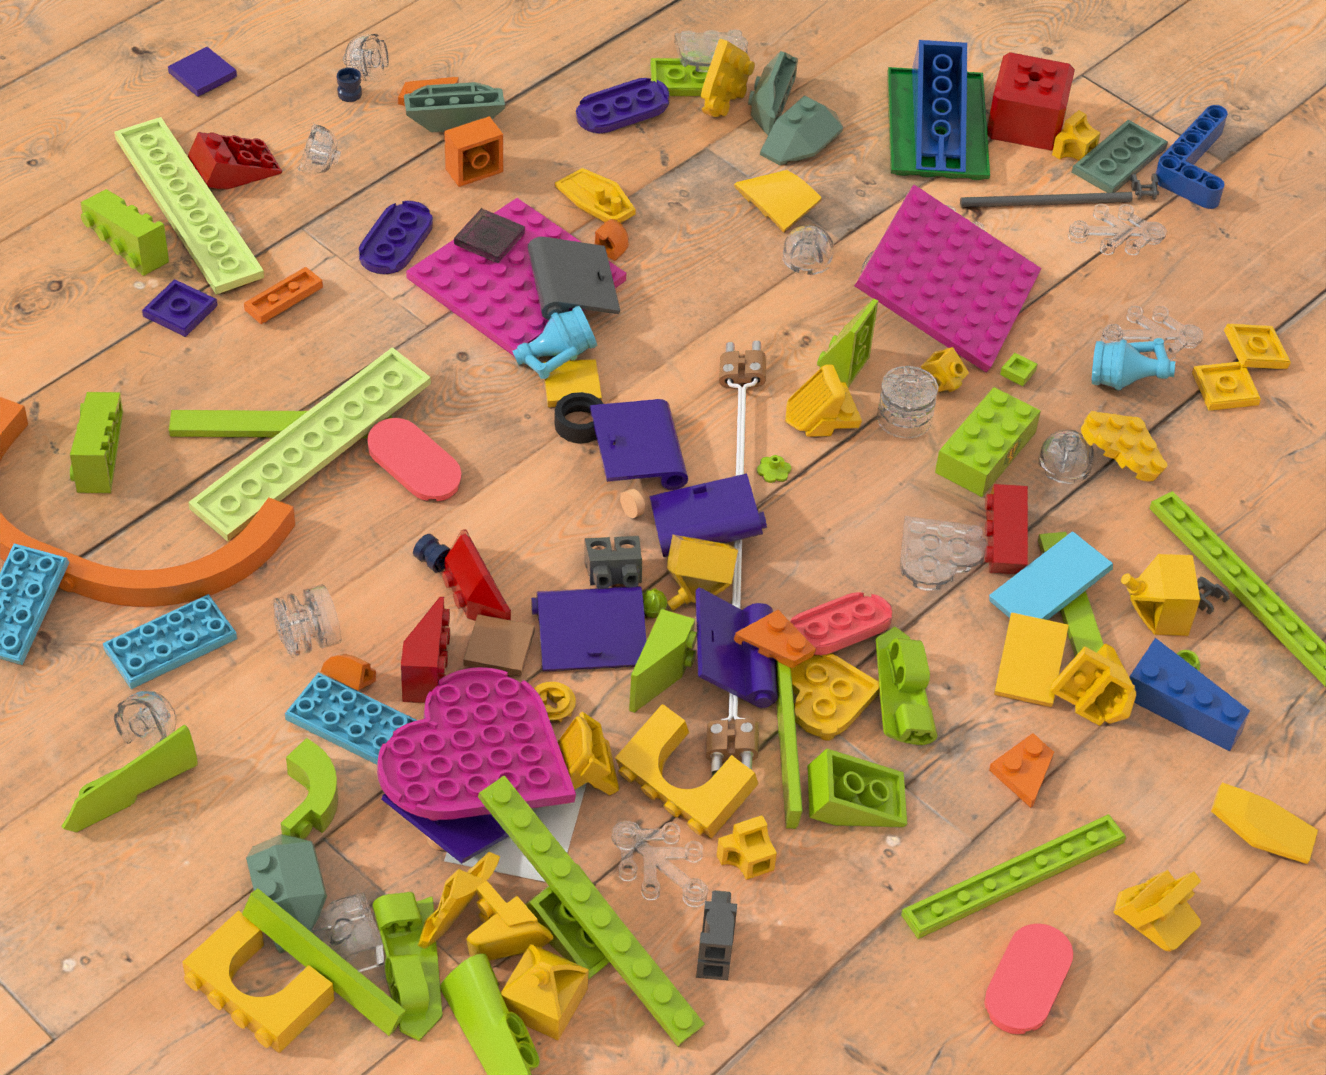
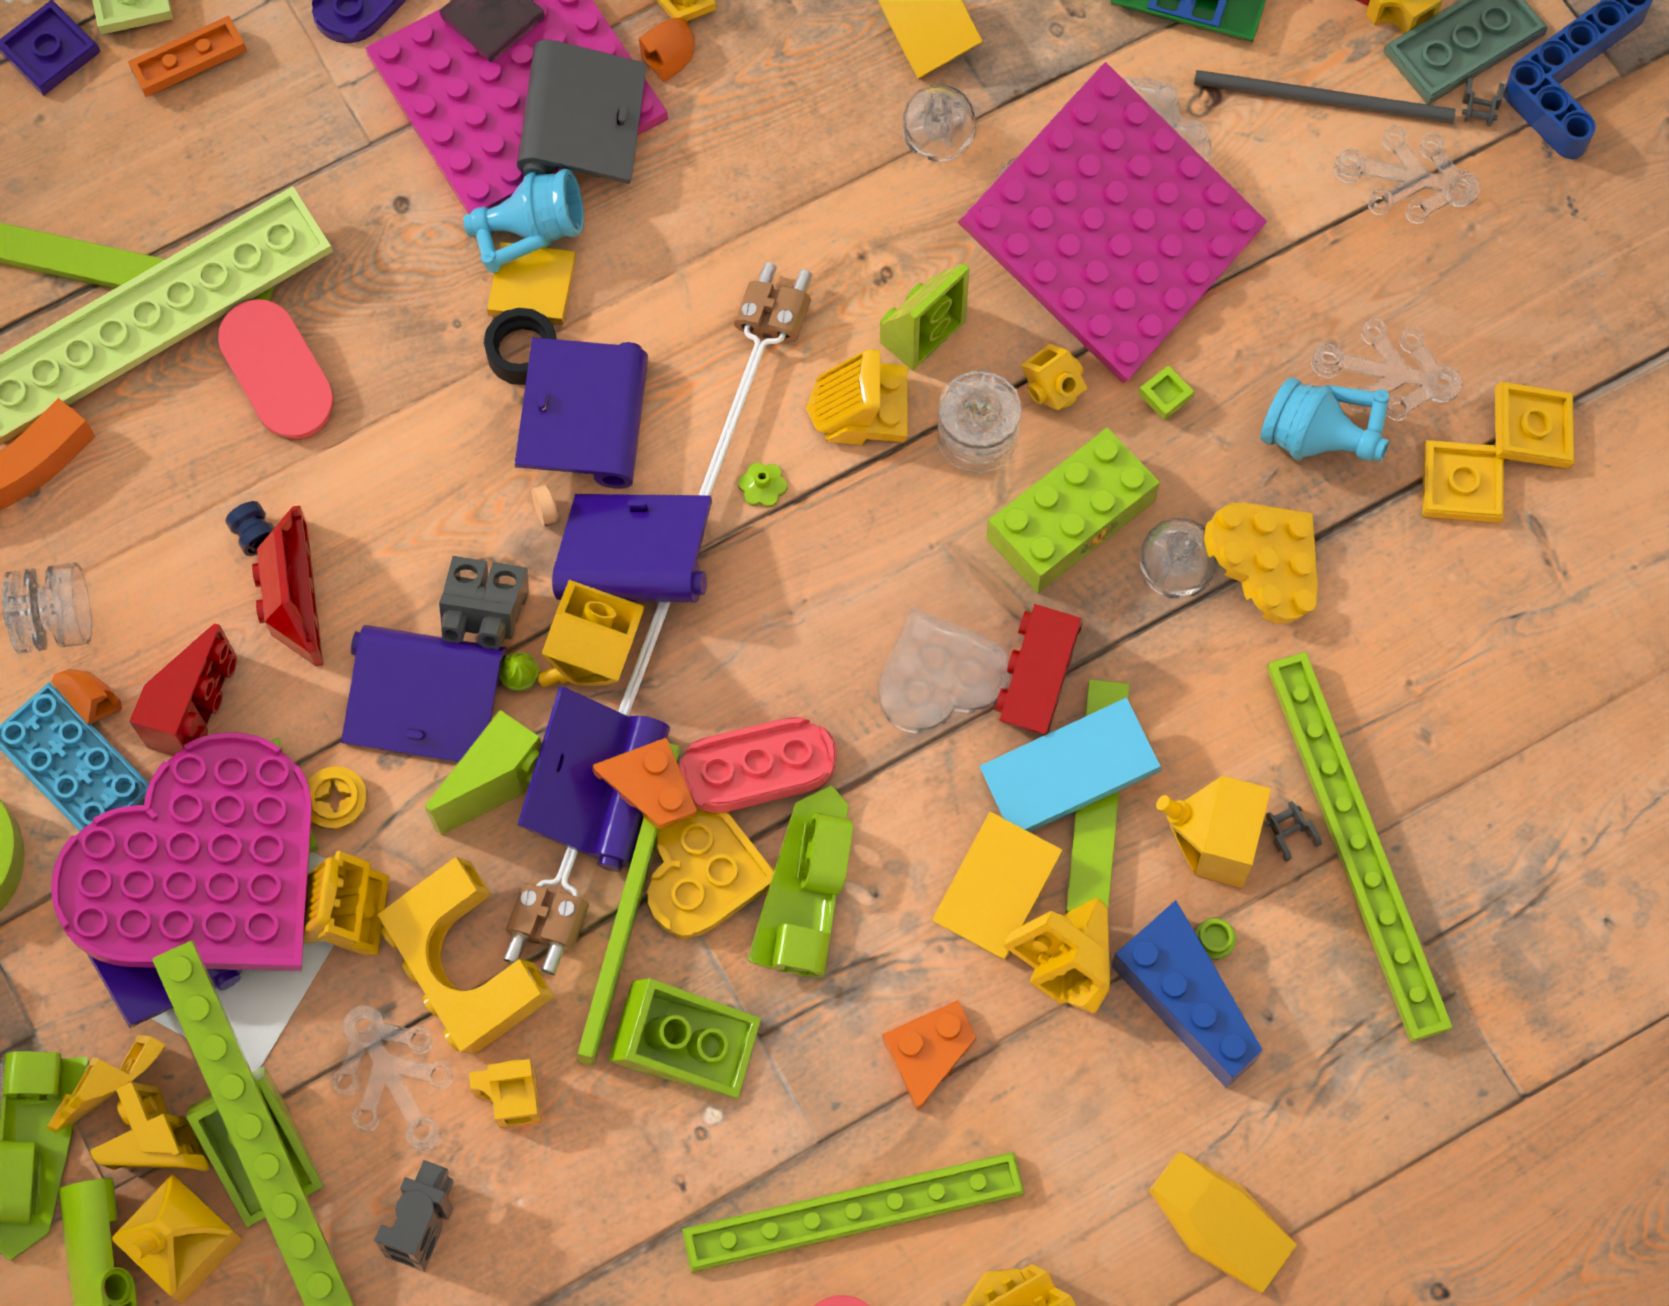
camera: 20 degrees right, 20 degrees up
(499, 644) = (292, 694): medium nougat tile -> none

